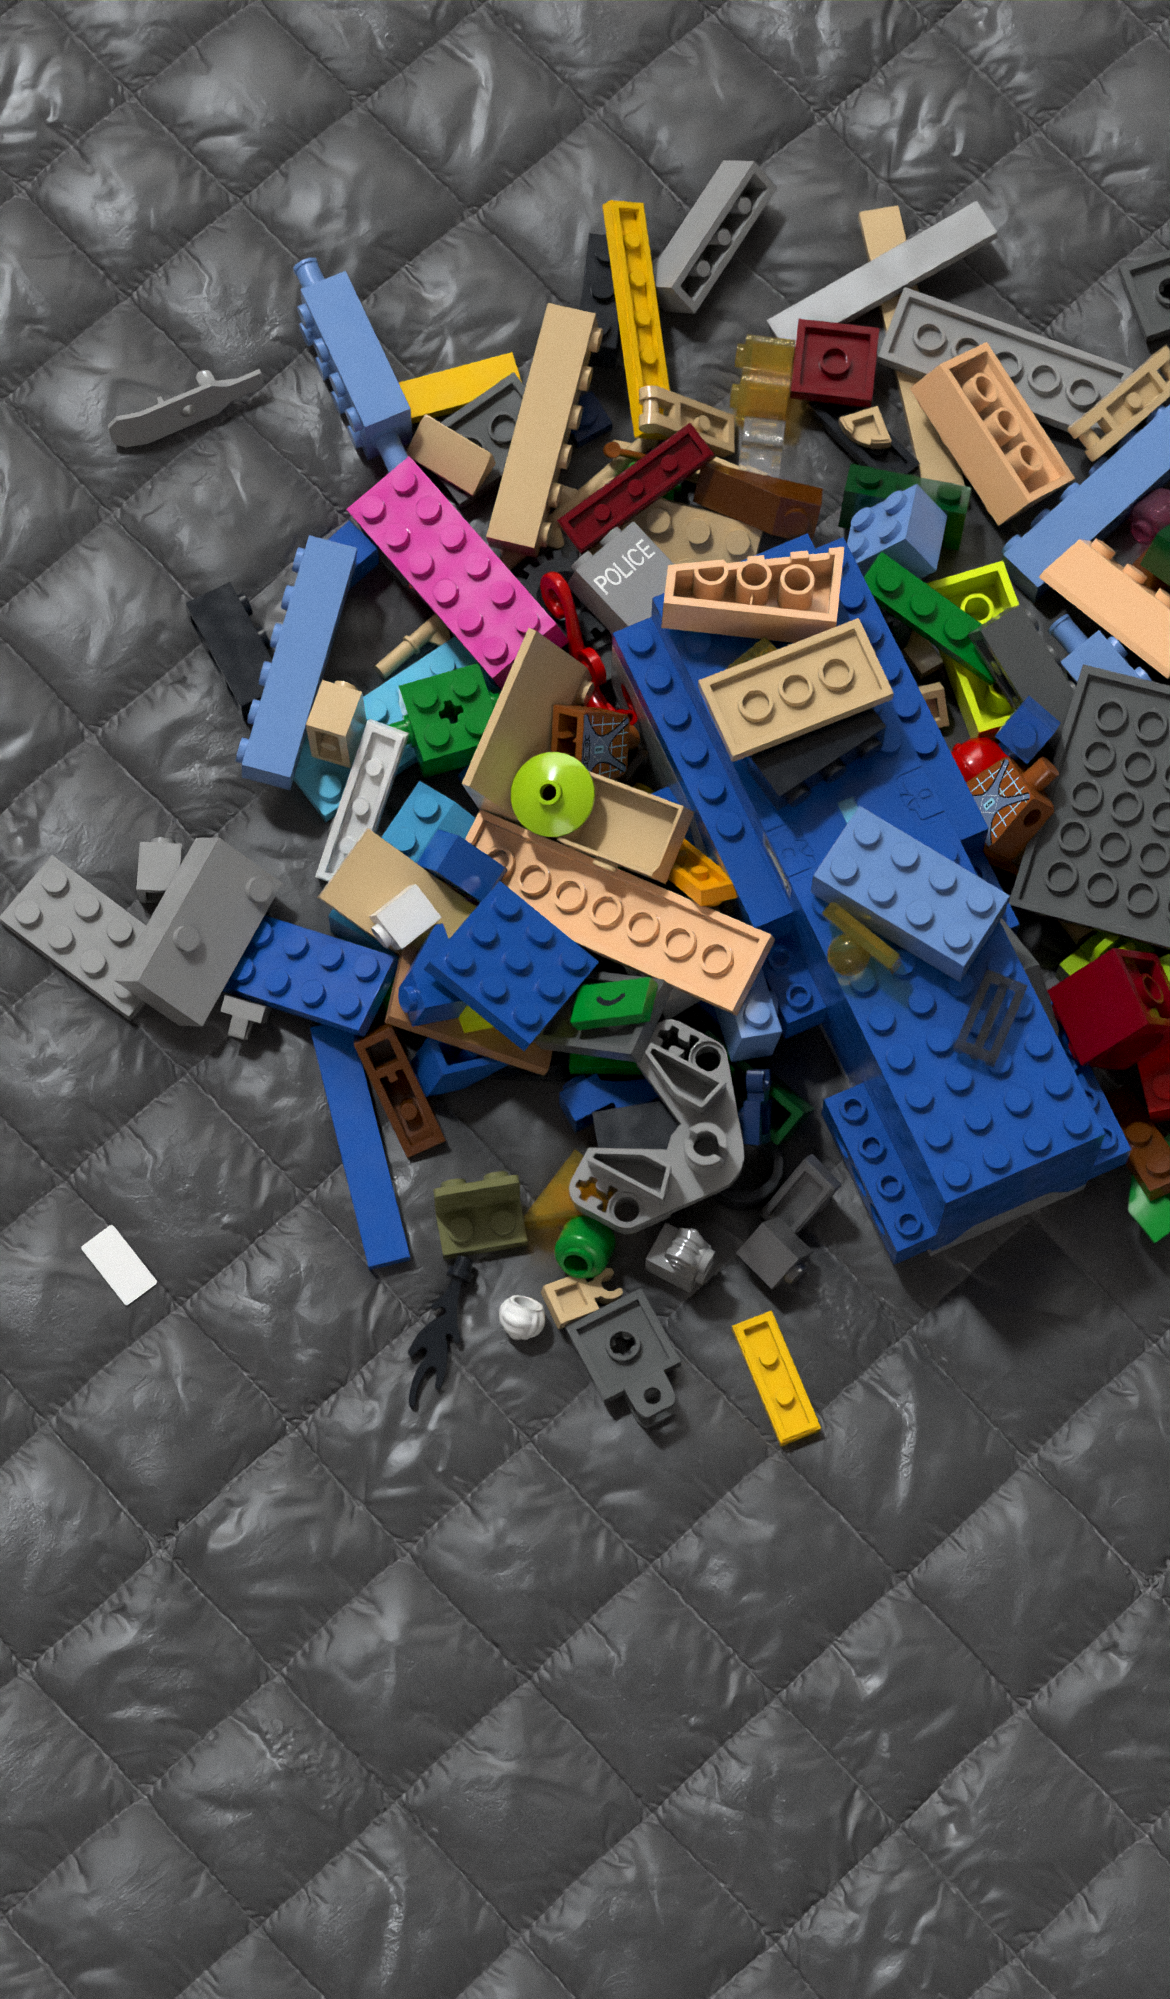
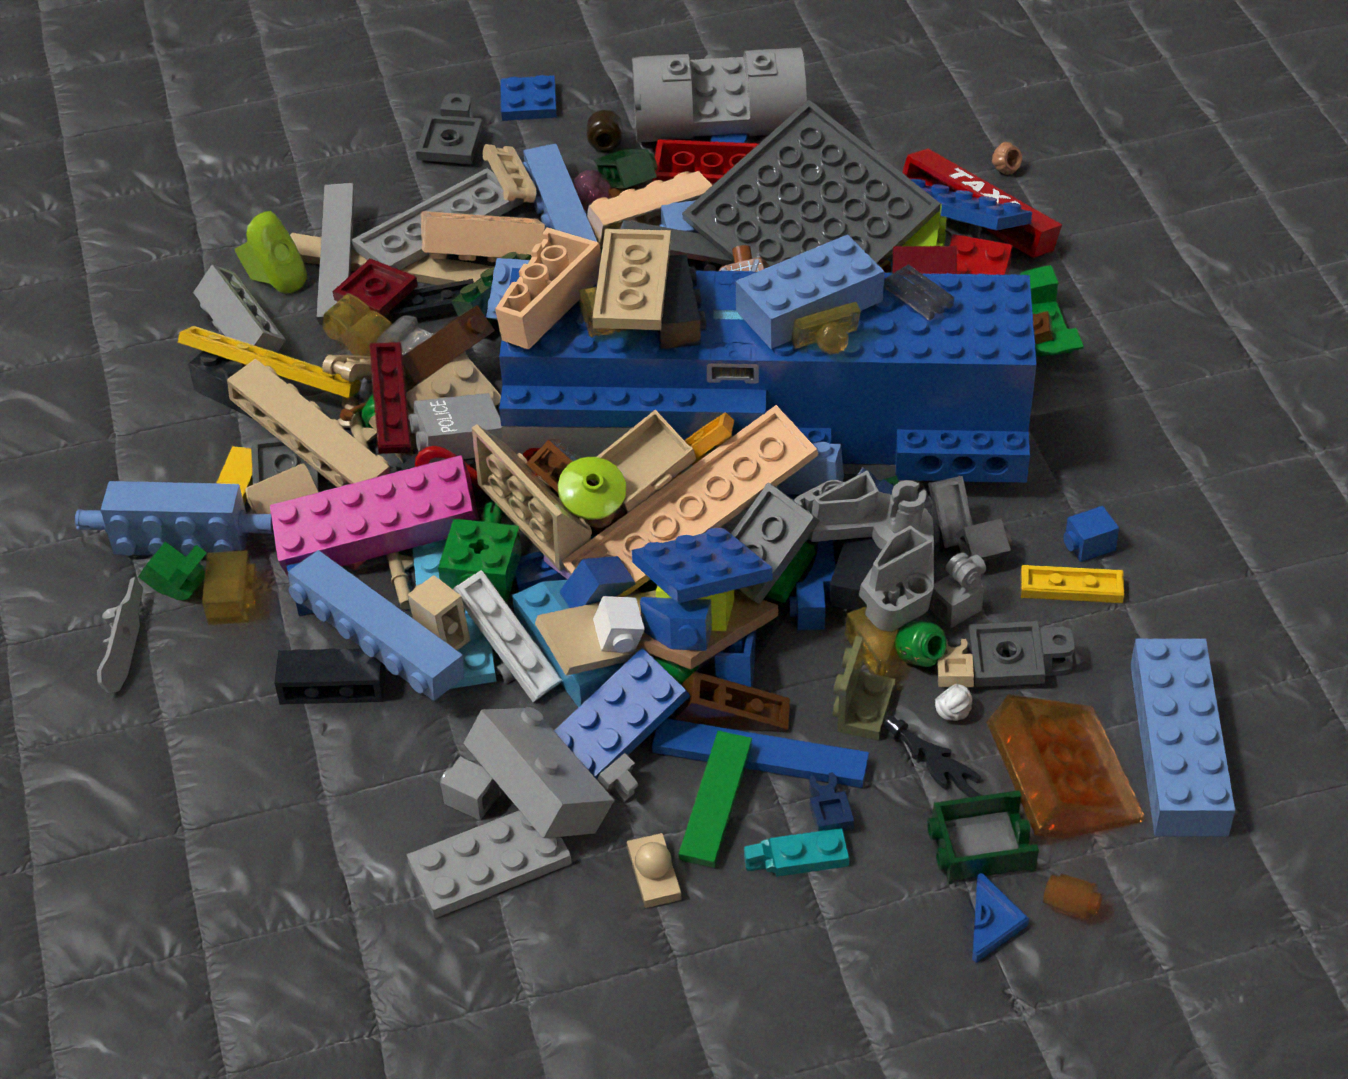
camera: 60 degrees left, 25 degrees down
(119, 1265) = (768, 948): white sticker -> none
(154, 1107) = (653, 870): none -> tan tile
(247, 1243) = (798, 853): none -> teal hinge
(258, 1475) = (995, 919): none -> blue tile
(269, 1126) = (715, 799): none -> green tile
(293, 406) = (174, 573): none -> green brick
(304, 475) = (228, 587): none -> clear yellow brick
(313, 1250) = (829, 808): none -> dark blue plate
(317, 1543) = (1072, 896): none -> clear orange brick
(349, 1421) = (981, 836): none -> dark green window
(488, 1471) = (1062, 767): none -> clear orange slope
(589, 1578) = (1181, 738): none -> medium blue brick
(614, 1003) = (766, 519): green tile -> none
(830, 195) = (272, 254): none -> lime piece
(855, 1369) = (1091, 534): none -> blue brick
(866, 428) = (432, 290): tan tile -> none
(1026, 730) = (708, 251): blue brick -> none

